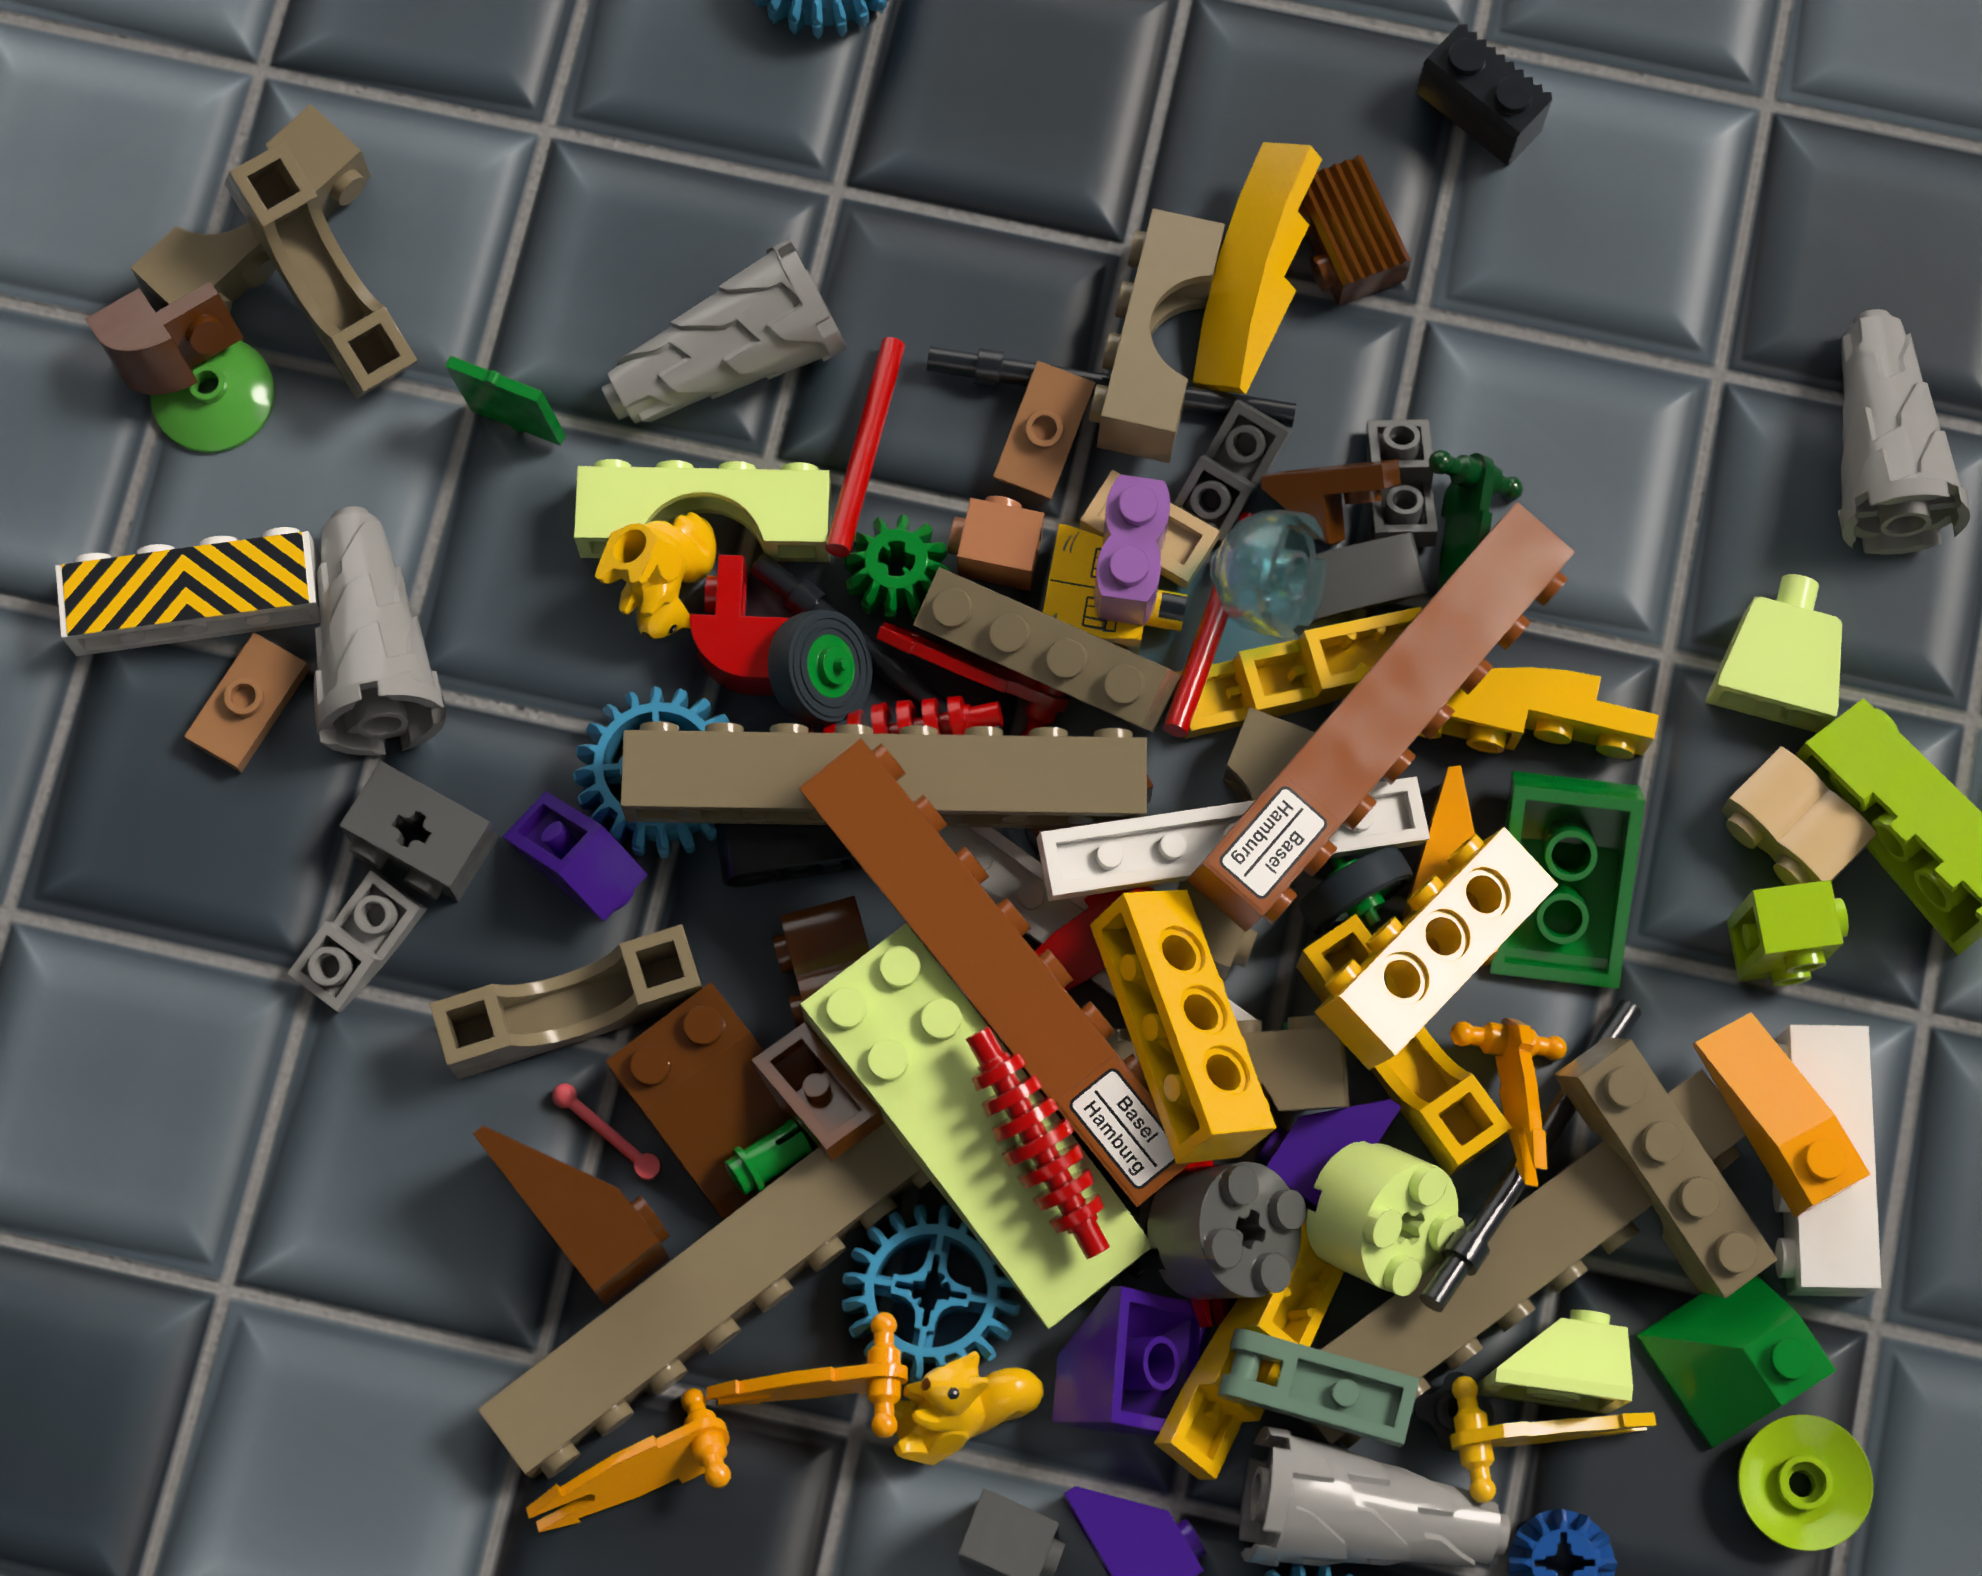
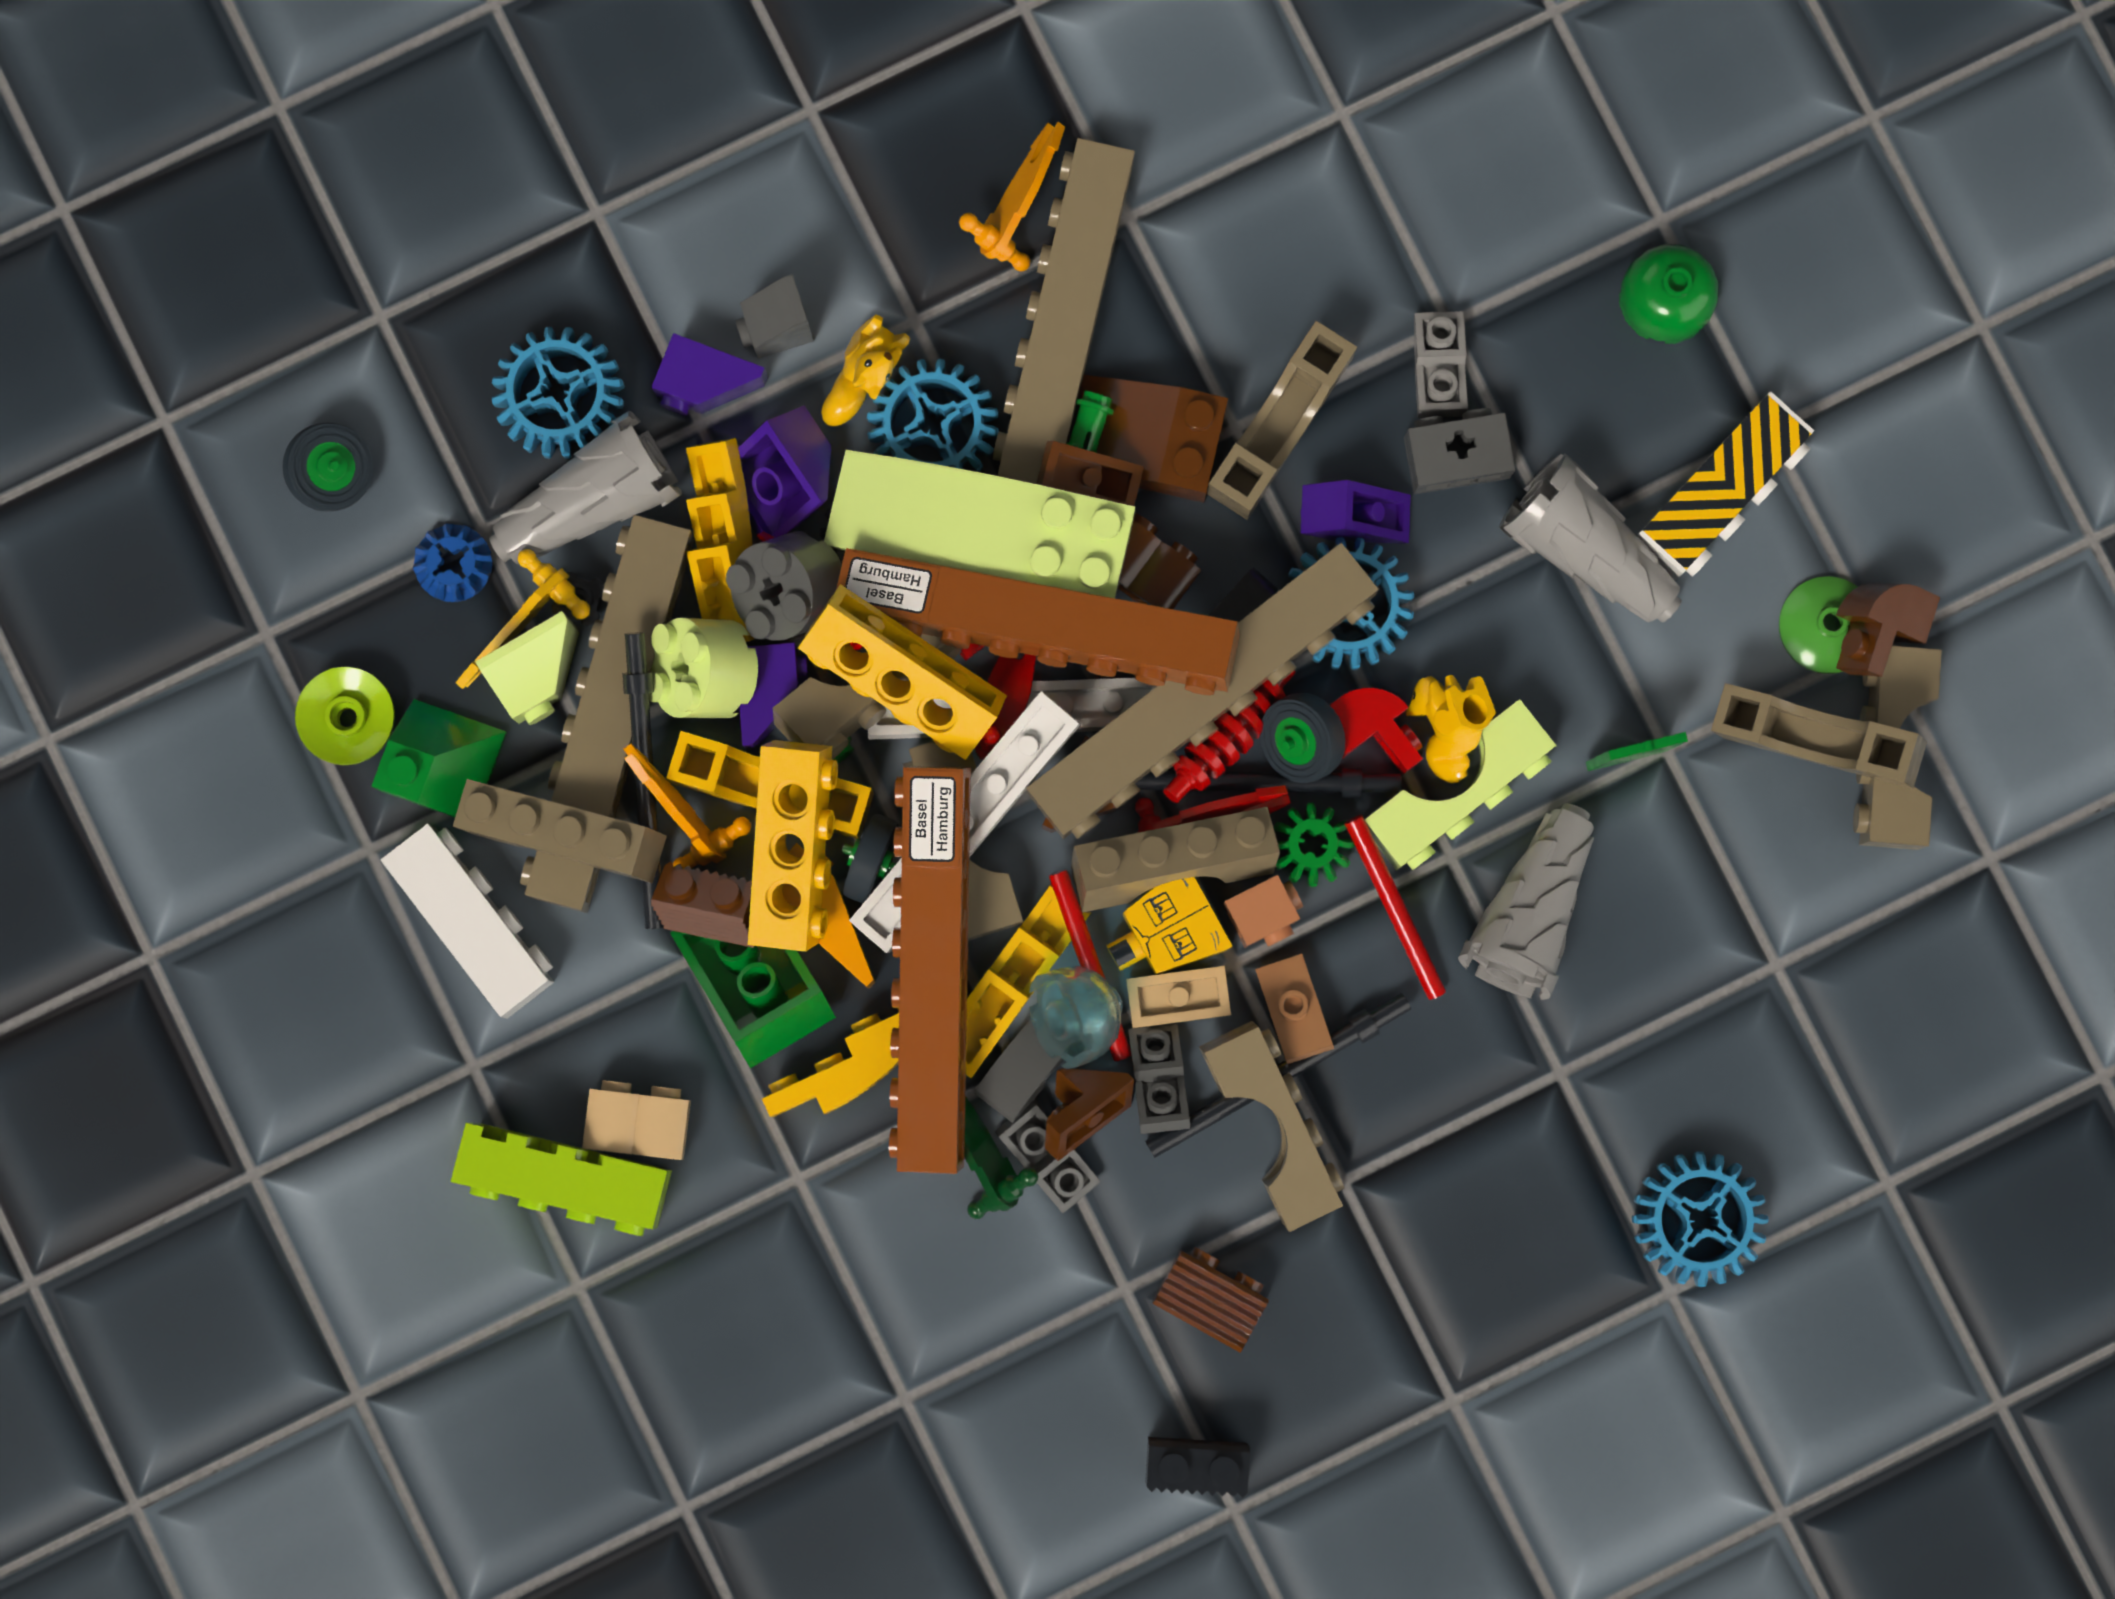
camera: 140 degrees right, 10 degrees up
(68, 827) = (1669, 293): none -> green cylinder
(247, 702) = (1632, 452): medium nougat plate -> none
(591, 1220) = (1166, 301): reddish brown slope -> none
(646, 1165) = (1161, 372): coral hinge -> none
(877, 1379) = (919, 346): light orange piece -> none
(1038, 1143) = (931, 533): red piece -> none
(1131, 549) = (1162, 941): medium lavender brick -> none
(1249, 279) = (1253, 1228): yellow slope -> none
(1321, 1388) = (661, 536): sand green plate -> none
(1563, 973) = (703, 904): none -> reddish brown brick
(1781, 1115) = (514, 912): light orange slope -> none
(1783, 660) = (723, 1225): yellowish green torso -> none
(1787, 932) = (589, 1037): lime brick -> none
(1895, 458) = (747, 1413): light grey cone -> none

